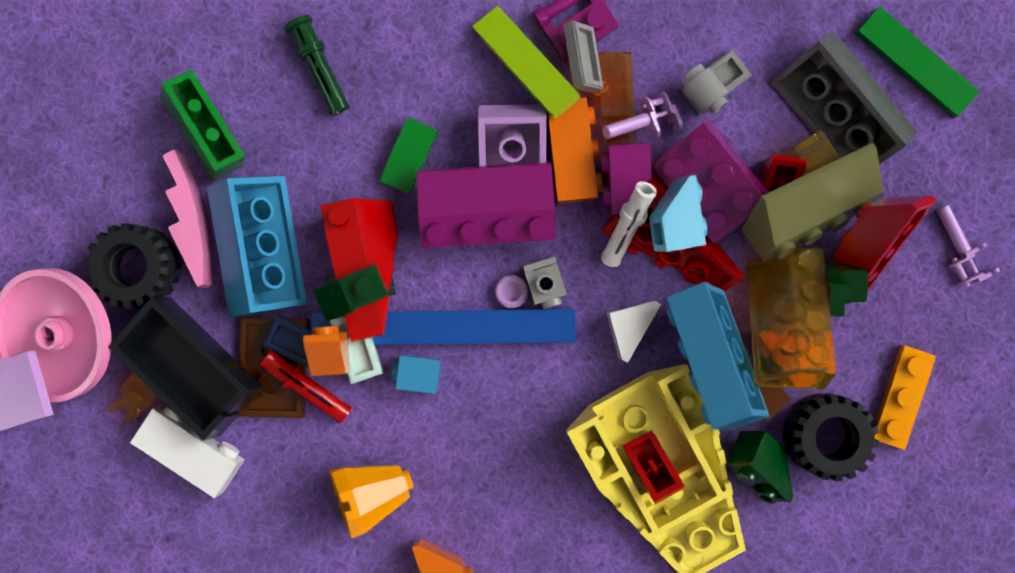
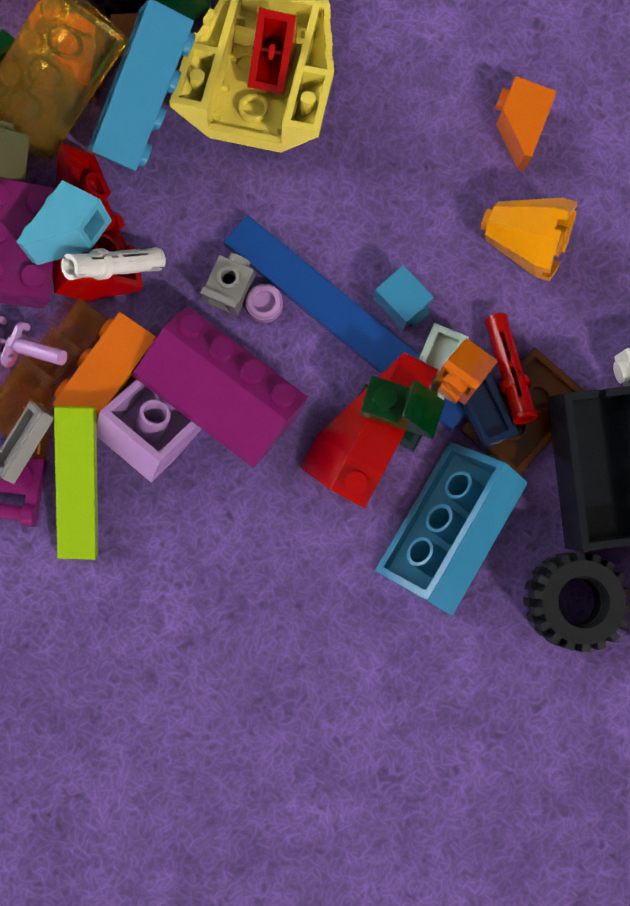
camera: 145 degrees left, 5 degrees down
(191, 231) = (499, 587): bright pink slope -> none
(201, 125) = (409, 675): green brick -> none
(311, 50) = (255, 660): dark green pin -> none
(409, 155) = (249, 492): green slope -> none
(625, 167) = (76, 309): magenta slope -> none
(630, 325) = (189, 186): white slope -> none

